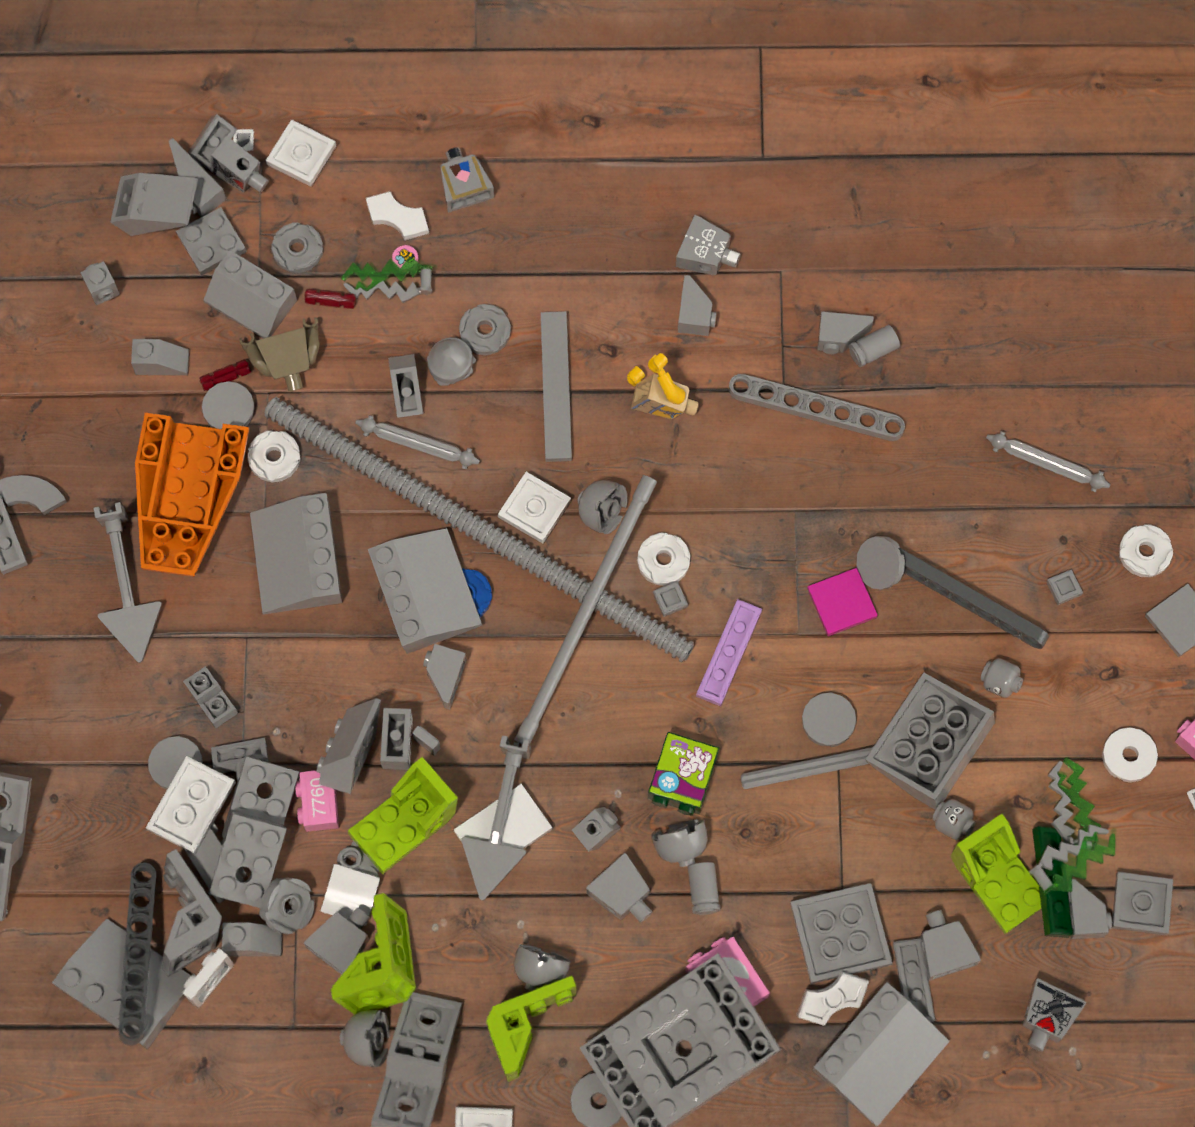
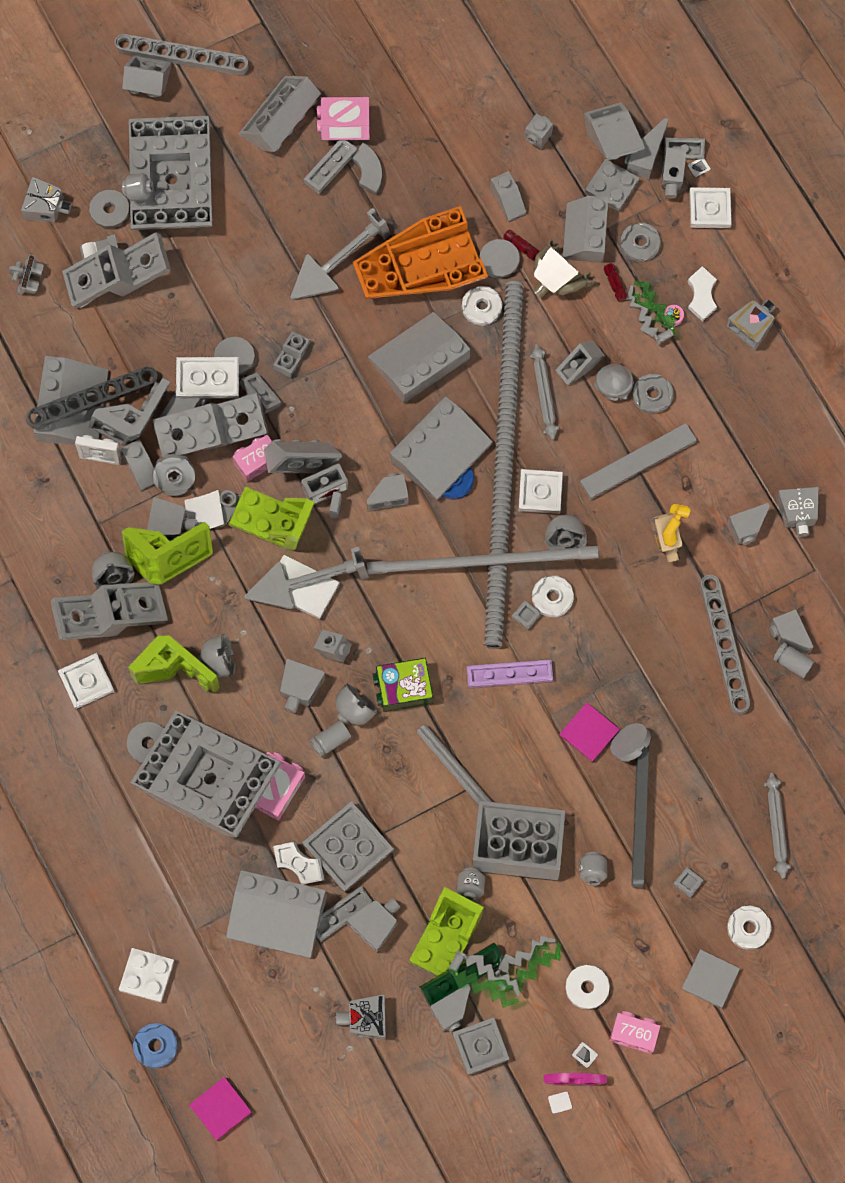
camera: 60 degrees right, 0 degrees up
(828, 719) = (497, 765): light grey tile -> none

